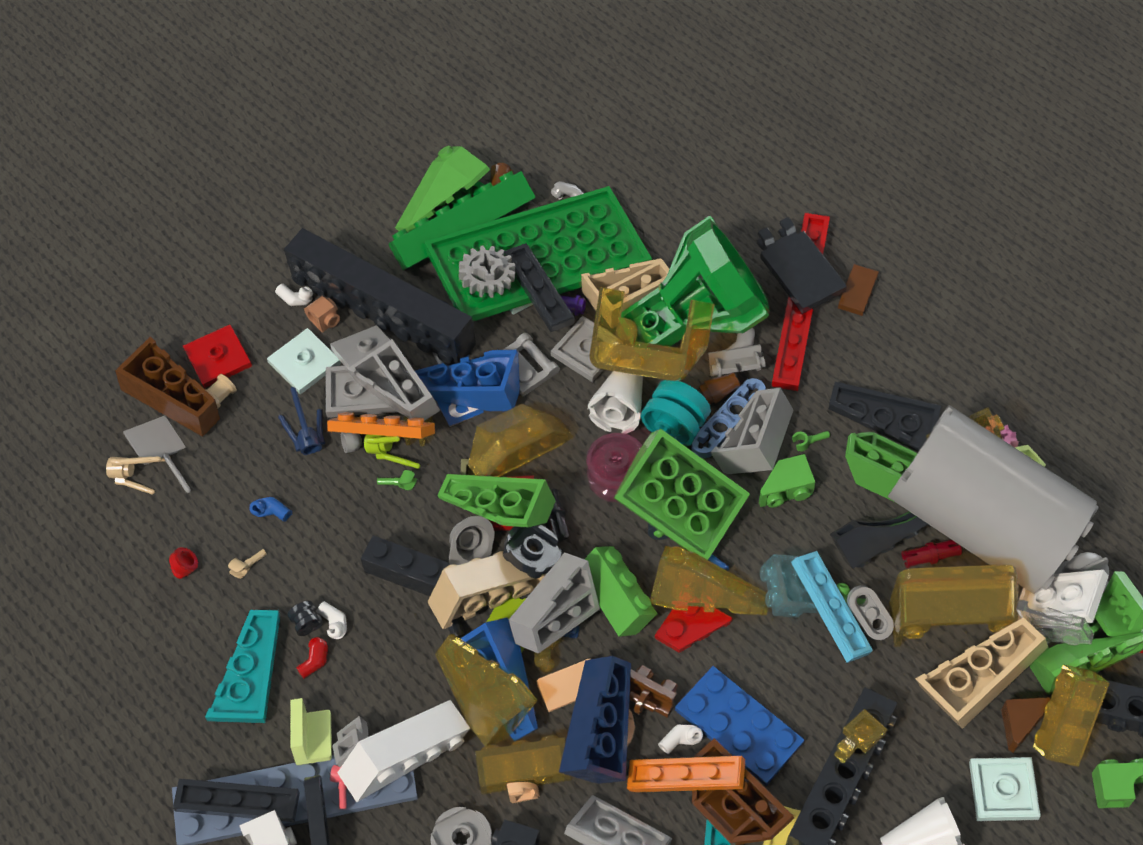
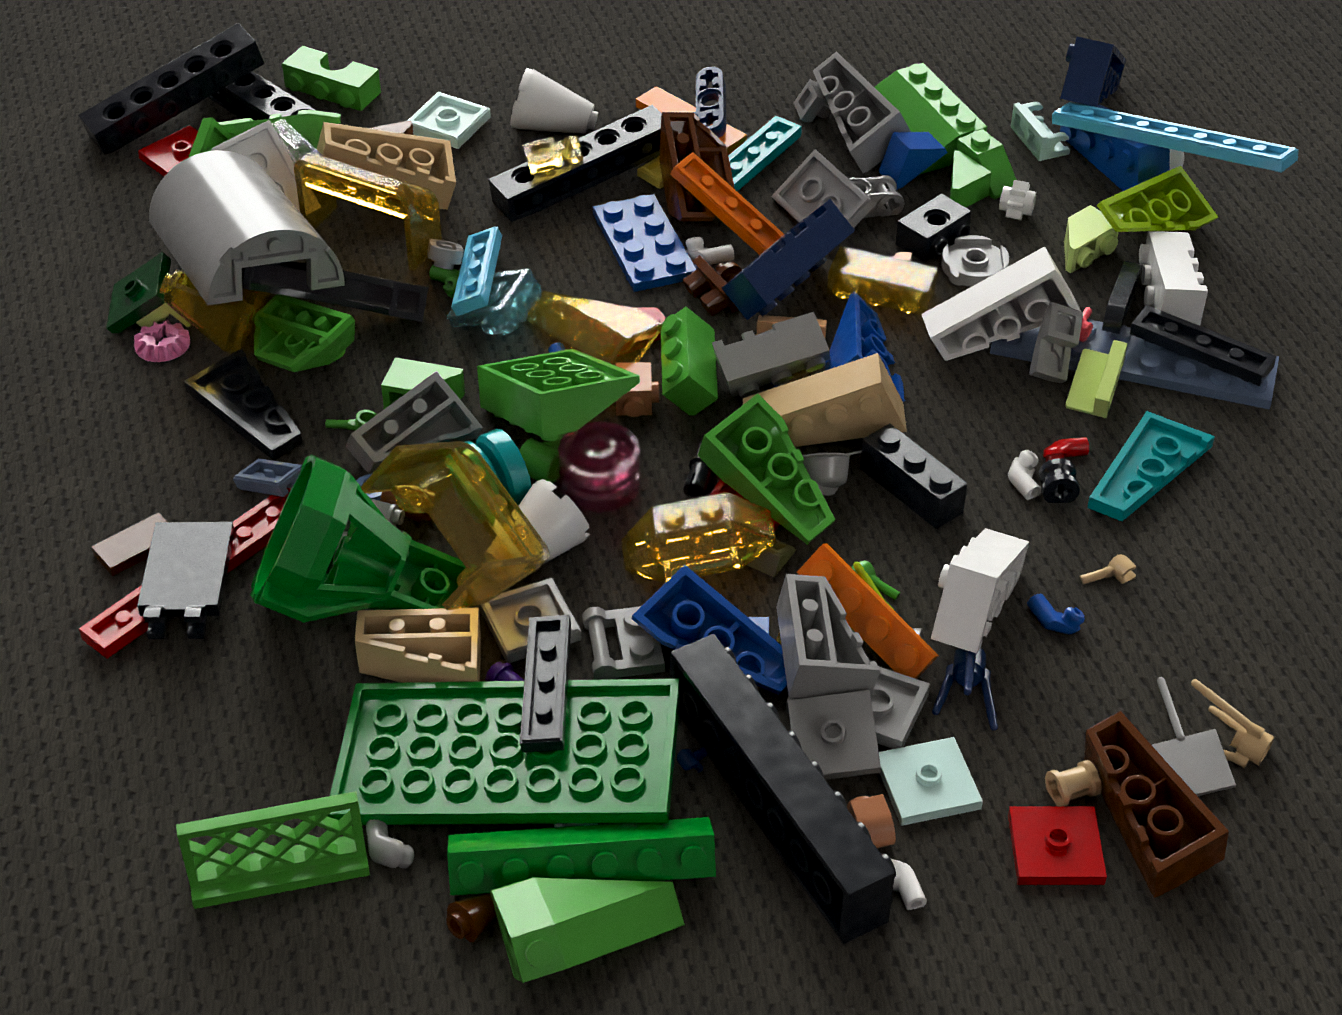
camera: 155 degrees left, 15 degrees down
(183, 562) = (1194, 597): red tile -> none
(318, 482) = (977, 587): none -> white wedge
(486, 271) = (604, 711): light grey gear -> none
(486, 695) = (892, 331): clear yellow wedge -> none
(525, 560) = (774, 389): black plate -> none
(611, 158) = (279, 866): none -> bright green fence
(640, 553) = (640, 398): none -> nougat brick
(817, 366) = (272, 480): none -> sand blue tile
(1043, 451) = (138, 294): none -> dark green plate
(1070, 715) = (355, 104): clear yellow brick -> none

